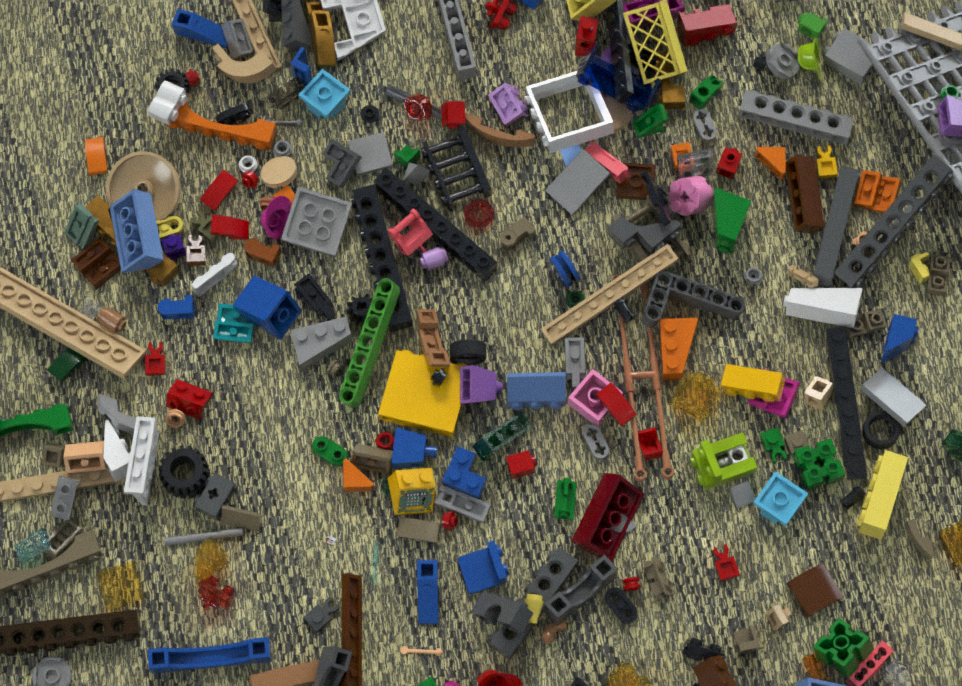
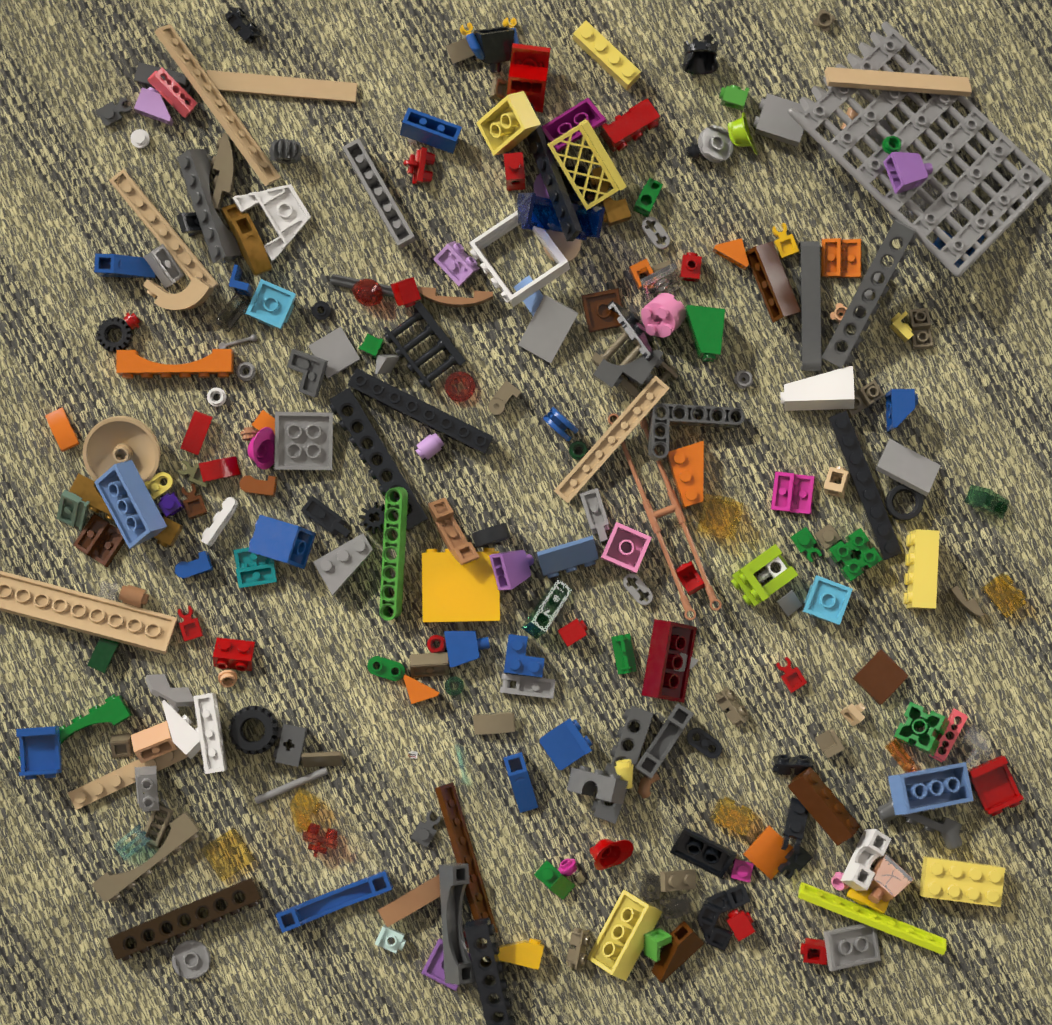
camera: 20 degrees left, 15 degrees up
(167, 102) = (117, 359): white brick -> none
(240, 112) = (193, 344): black plate -> none
(249, 179) = (223, 413): red plate -> none
(279, 172) = (250, 398): tan tile -> none
(334, 368) = (366, 585): dark tan bush -> none
(404, 650) = (546, 834): light nougat hinge -> none
(412, 491) = (477, 689): yellow slope -> none
(414, 238) = (405, 434): coral piece -> none
(438, 377) = (471, 571): black plate -> none
(449, 520) = (521, 706): red plate -> none
(616, 404) = (649, 551): red slope -> none
(618, 170) = (579, 304): coral piece -> none
(624, 310) = (628, 450): black pin -> none
(631, 584) = (708, 719): red bush -> none
(651, 121) = (602, 246): green slope -> none
(753, 383) = (772, 491): yellow brick -> none
(801, 125) = (734, 206): light grey brick -> none
(802, 276) = (791, 368): tan axle -> none
(855, 495) = (893, 576): black pin -> none

